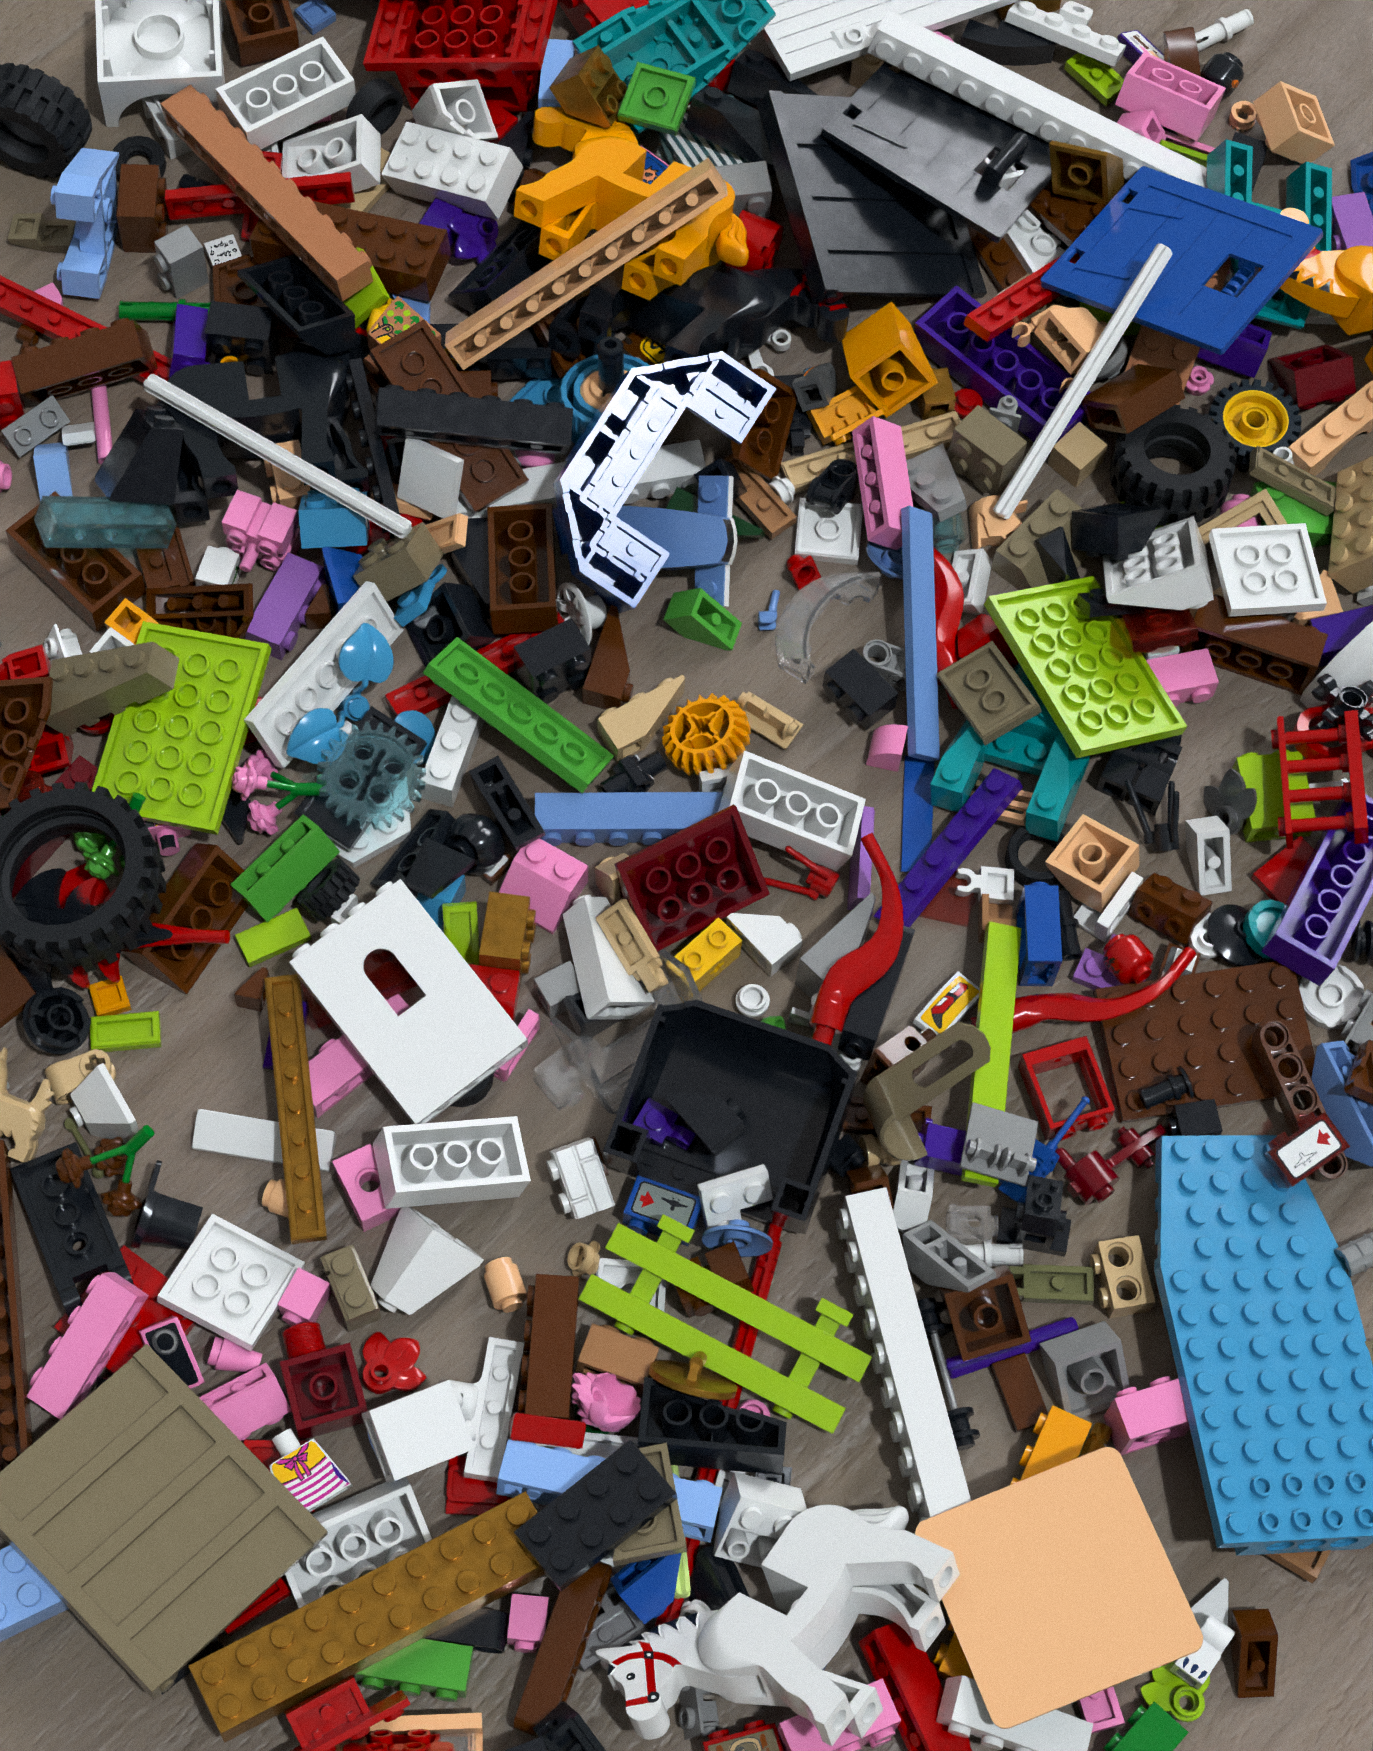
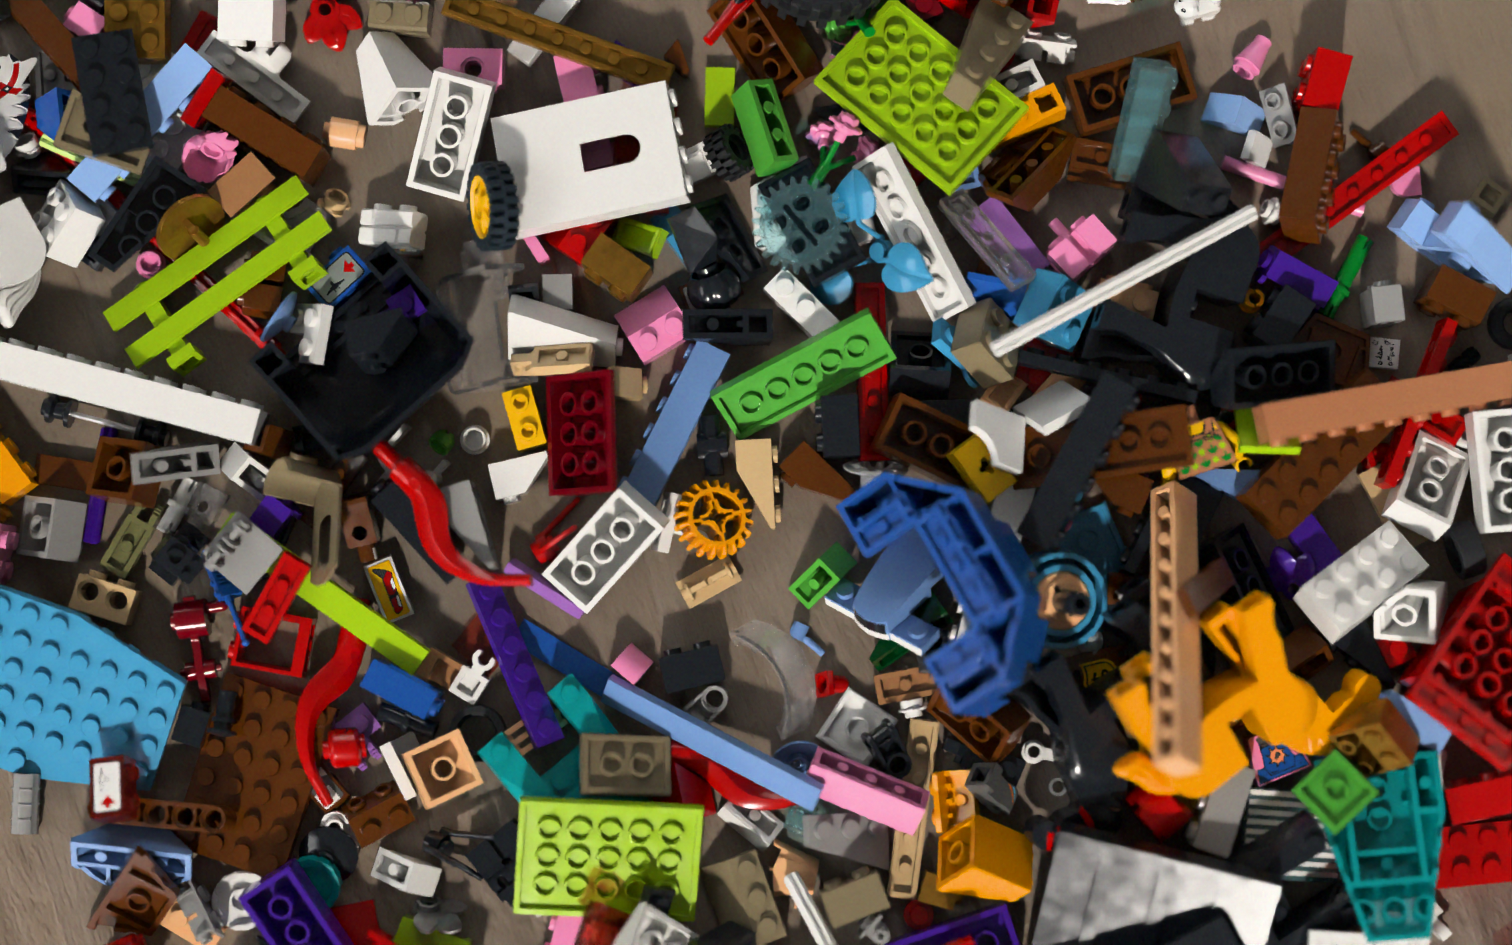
camera: 125 degrees right, 20 degrees up
(133, 395) = (1270, 210): none -> white plate
(218, 567) = (1065, 202): white brick -> none
(298, 603) = (998, 253): none -> clear piece
(481, 502) = (1002, 434): none -> white tile
(508, 1067) = (492, 206): none -> black wheel
(523, 509) = (967, 461): none -> yellow brick
(532, 265) = (1205, 587): none -> reddish brown tile
(1023, 1087) = (276, 597): none -> red plate
(1056, 556) = (722, 900): black slope -> none

